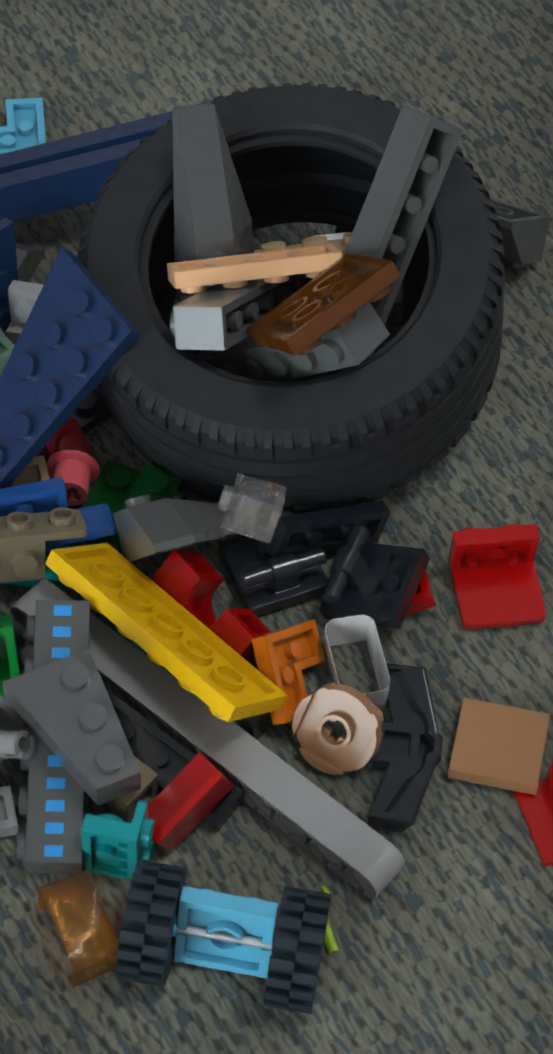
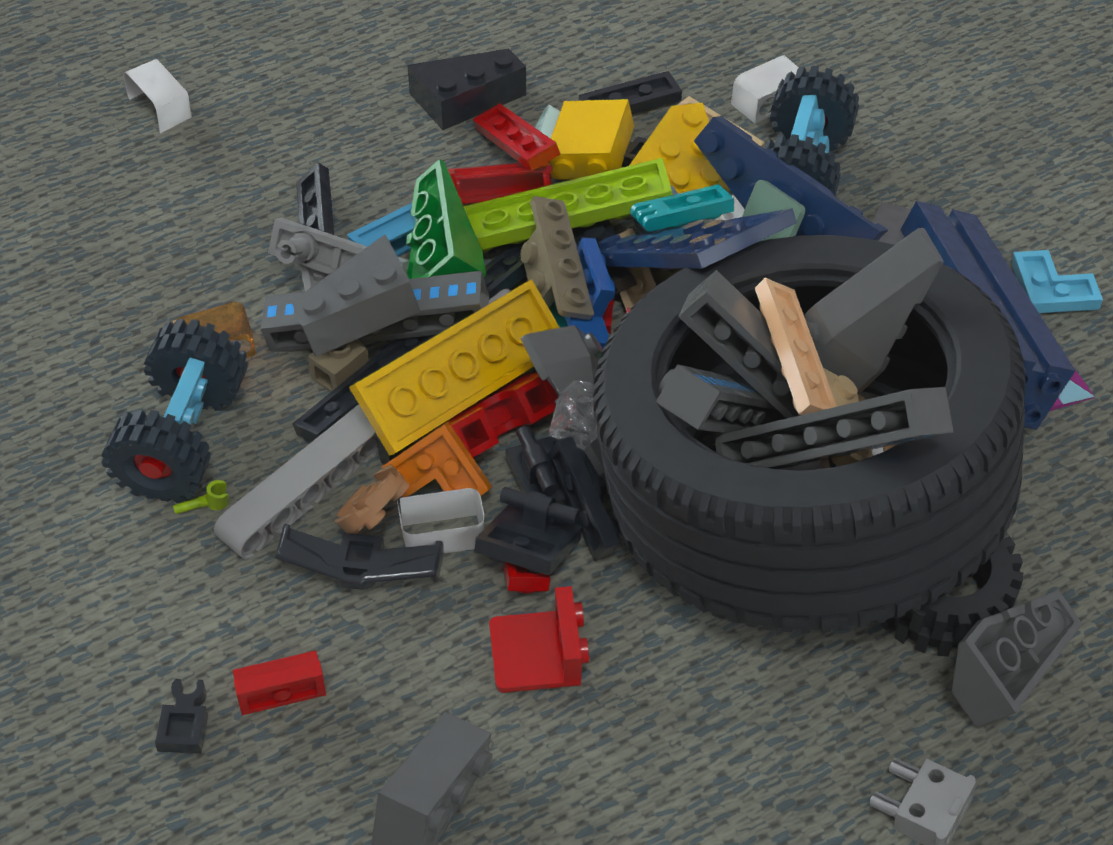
camera: 95 degrees right, 5 degrees down
(116, 845) = (273, 351): teal bracket -> none
(187, 801) = (308, 396): red panel -> none
(324, 304) = (718, 368): reddish brown plate -> none
(499, 746) = (356, 638): medium nougat tile -> none

